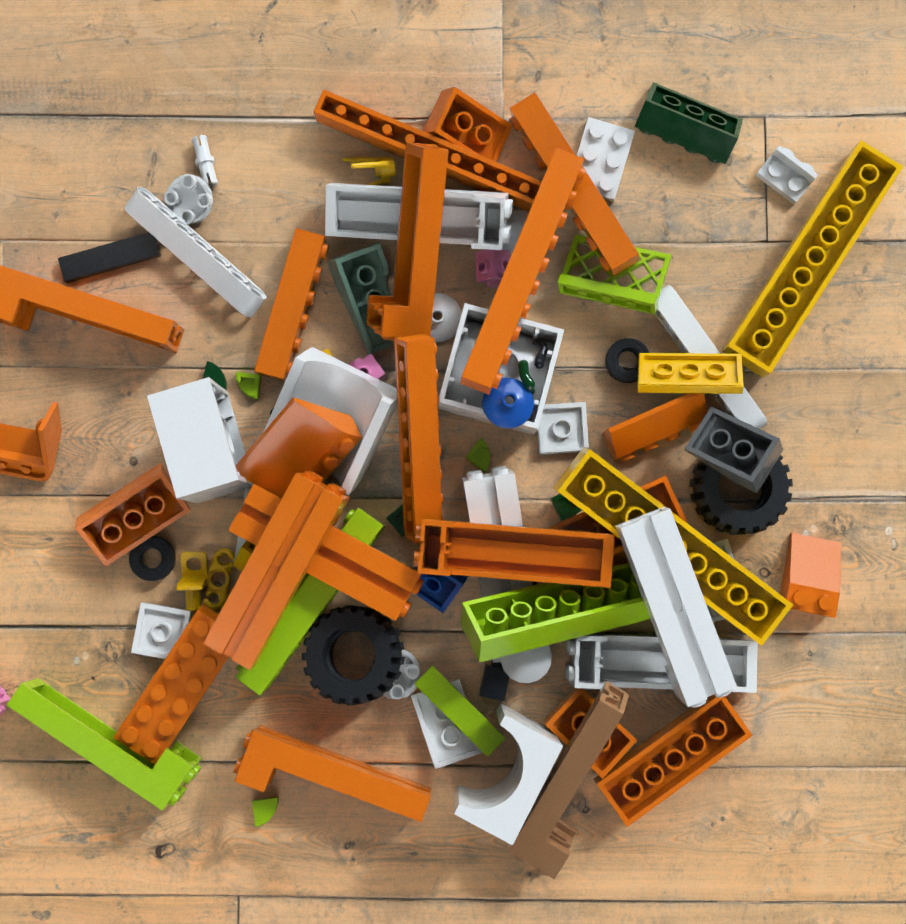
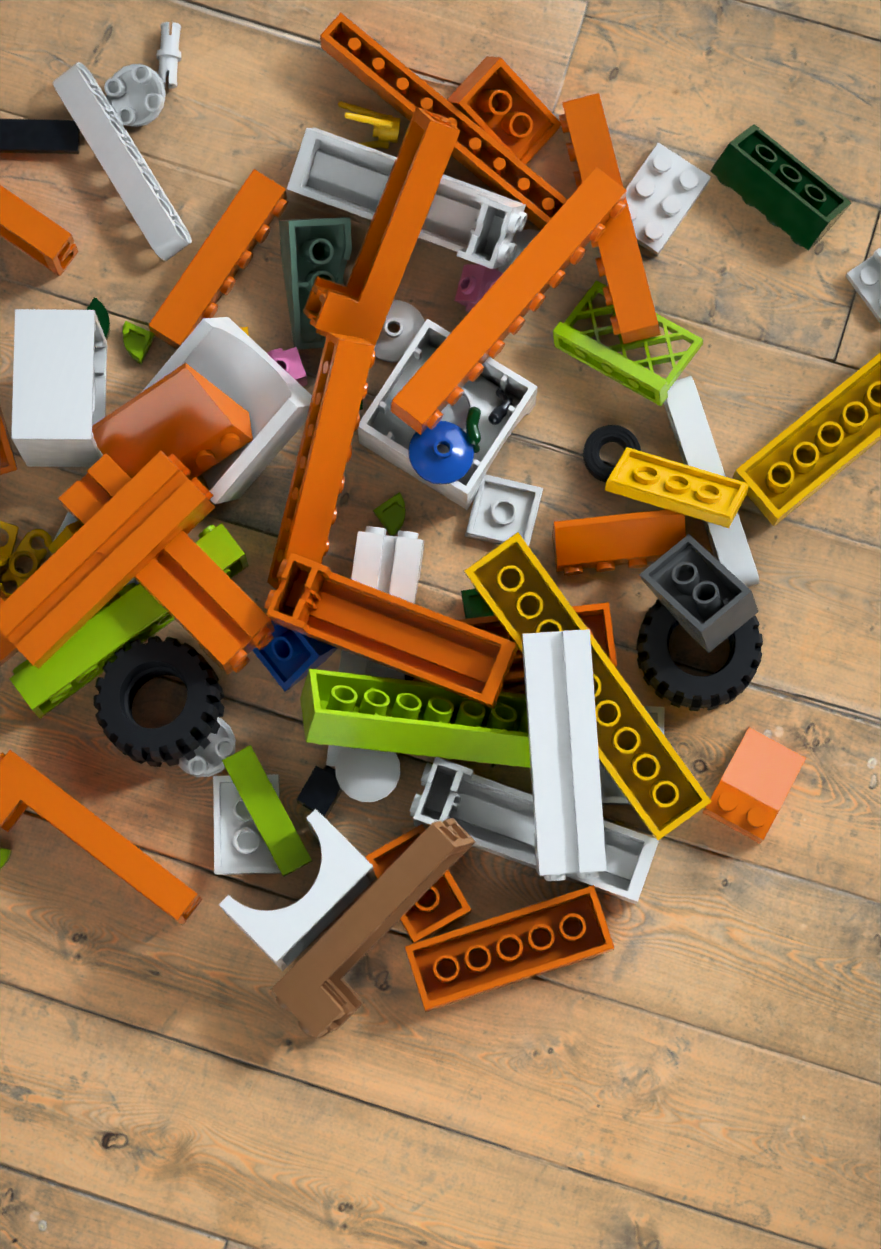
camera: 20 degrees right, 5 degrees down
(397, 520) = (263, 560): dark green tile -> none

